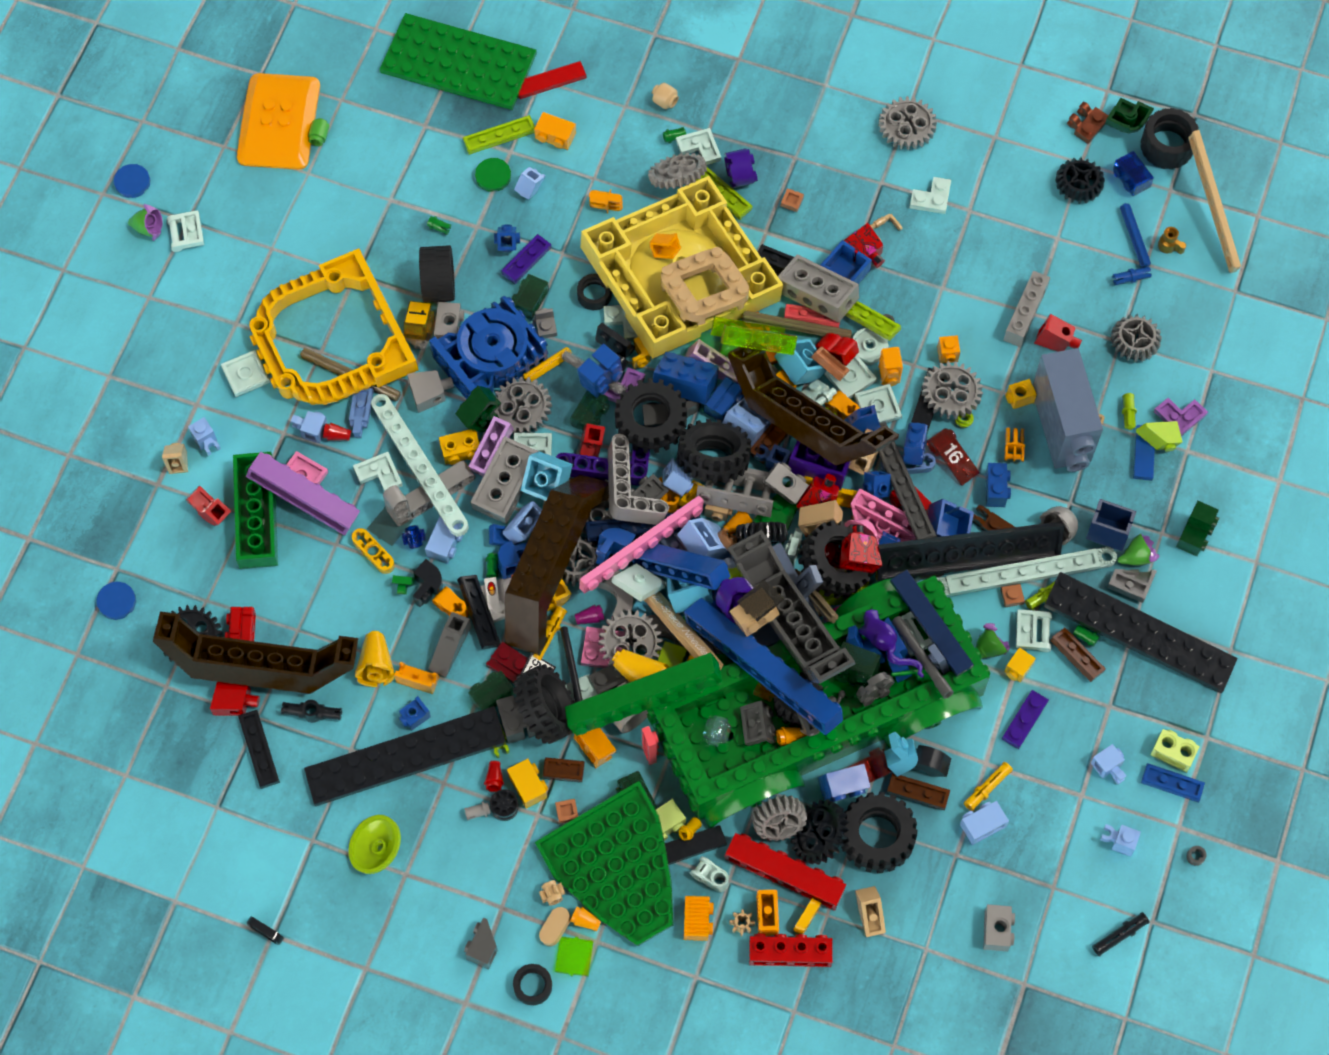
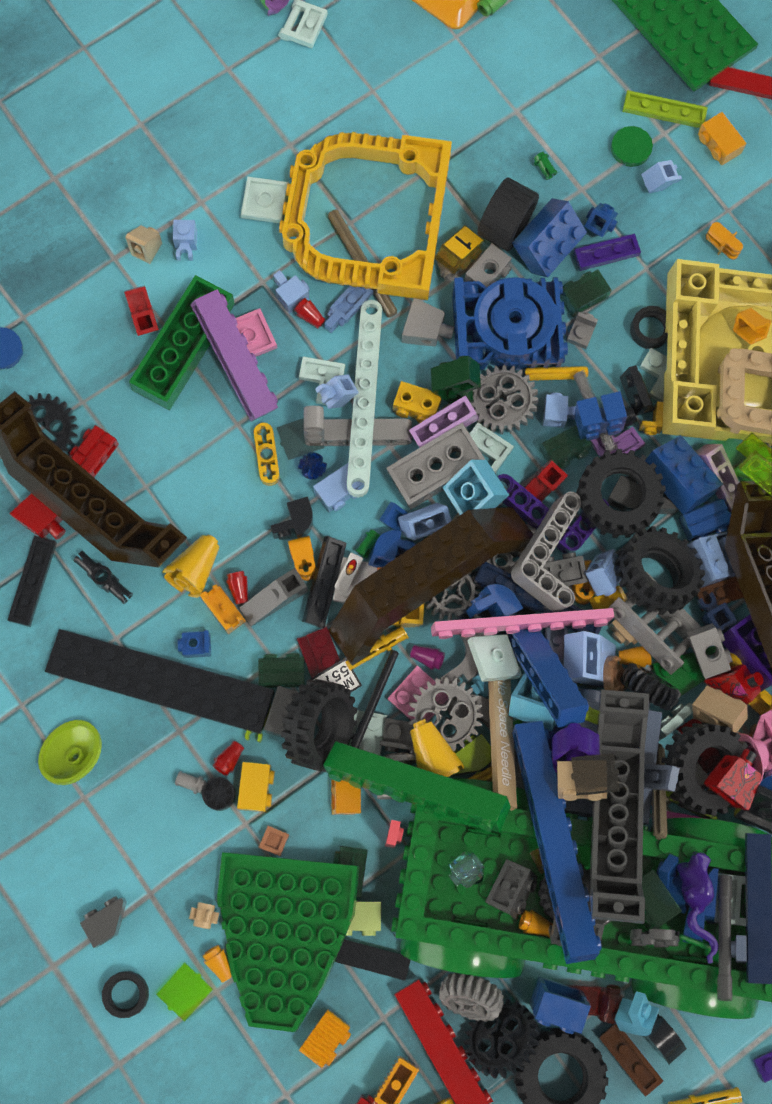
camera: 30 degrees right, 10 degrees up
(397, 471) = (337, 391): none -> light blue brick
(402, 582) = (272, 505): green tile -> none
(417, 654) = (238, 586): none -> red cone
(478, 272) = (549, 237): none -> blue brick
(555, 926) = (185, 950): tan tile -> none
(563, 769) = (299, 796): reddish brown plate -> none
(566, 390) = (557, 410): none -> light blue brick
(687, 831) = (375, 943): yellow pin -> none
(707, 872) = (367, 1001): light aqua piece -> none
(742, 916) = (360, 1078): tan gear -> none

